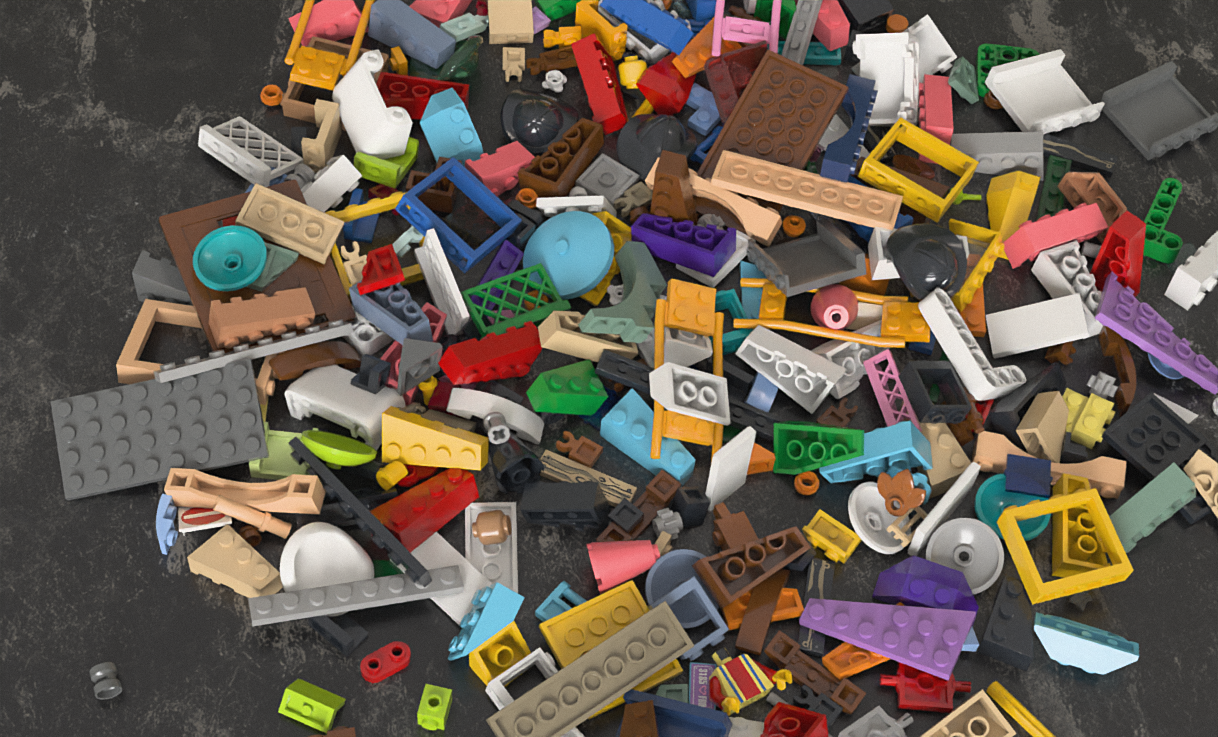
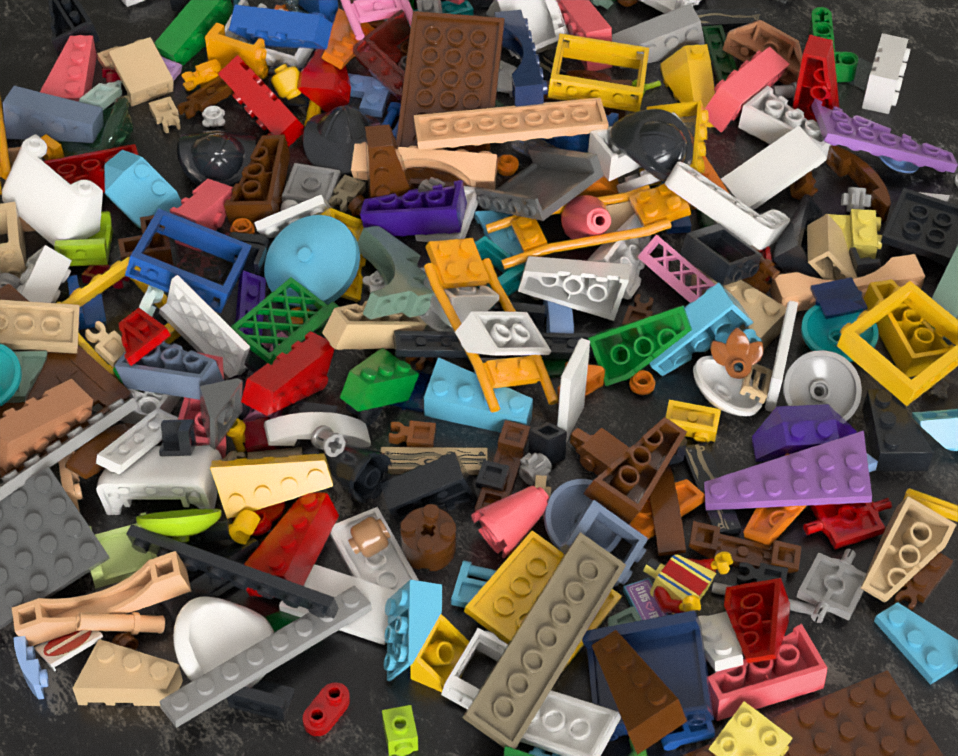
camera: 20 degrees left, 5 degrees down
(334, 364) = (134, 442): none -> white plate
(542, 549) = (428, 538): none -> reddish brown brick
(897, 288) = (634, 181): none -> white plate

